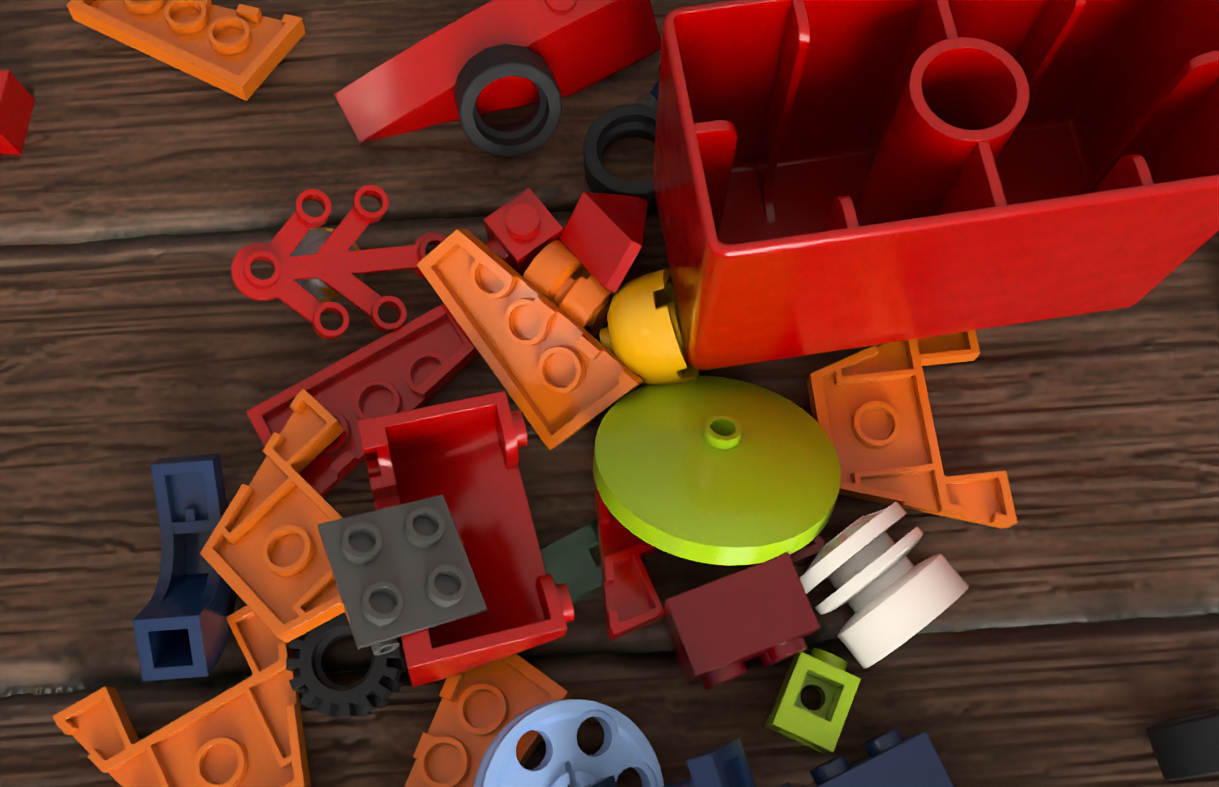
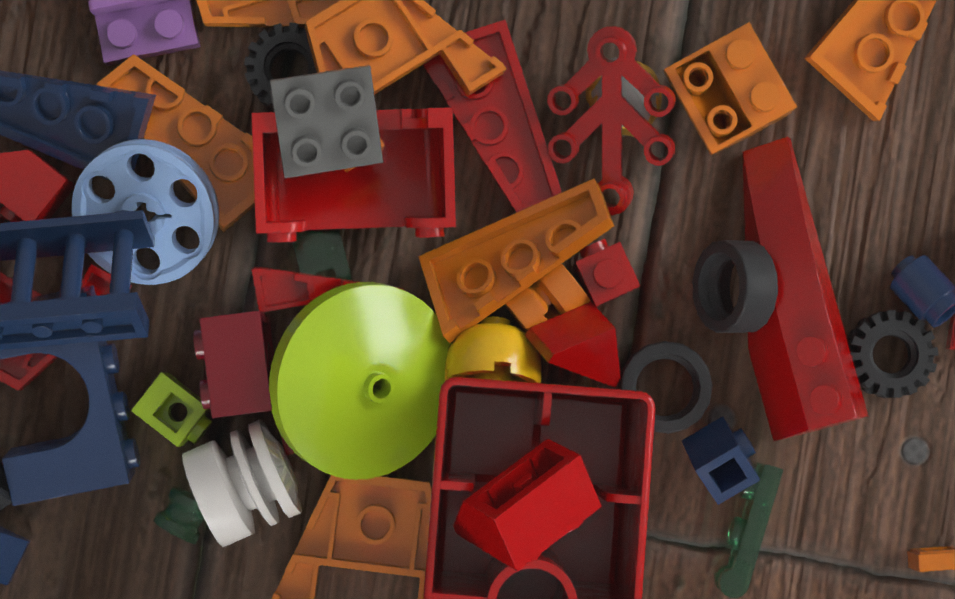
camera: 100 degrees right, 15 degrees up
(286, 148) = (730, 89): none -> orange slope
(843, 129) = (529, 505): none -> red slope
(938, 657) = (181, 515): none -> clear green wheel

